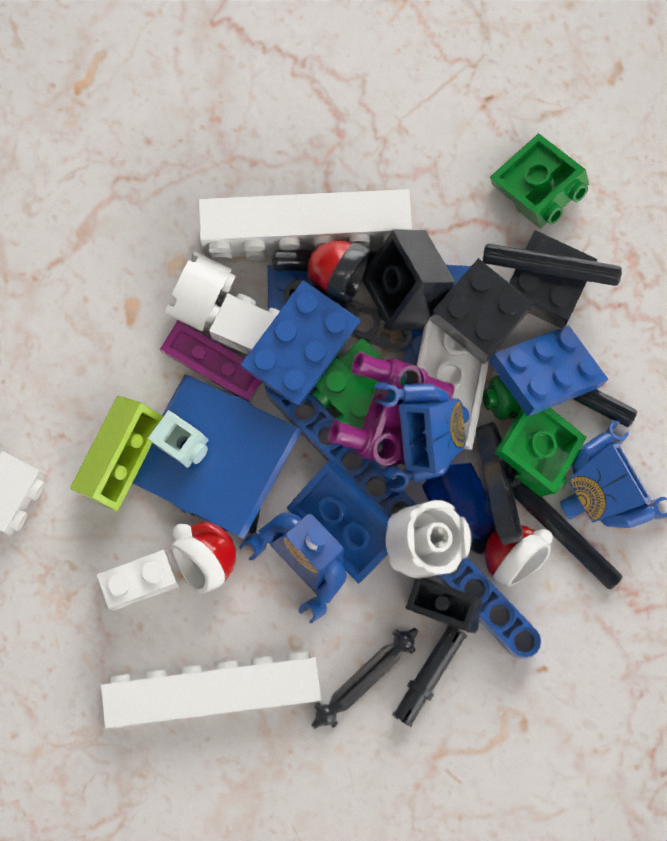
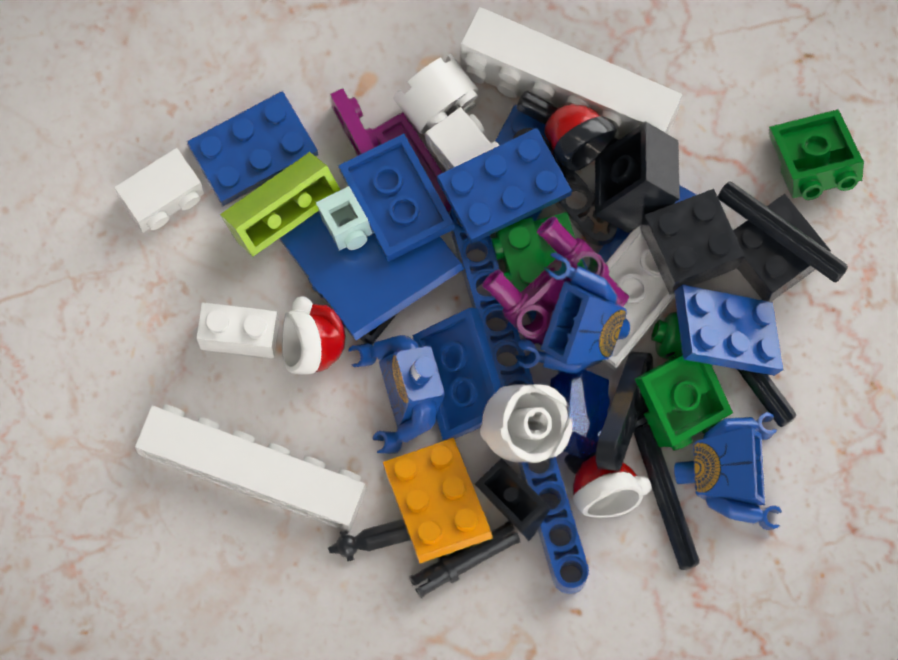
camera: 25 degrees right, 5 degrees down
(65, 415) = (251, 147): none -> blue plate
(132, 344) = (348, 114): none -> magenta plate
(213, 398) = (396, 197): none -> blue plate
(381, 638) = (437, 500): none -> light orange plate

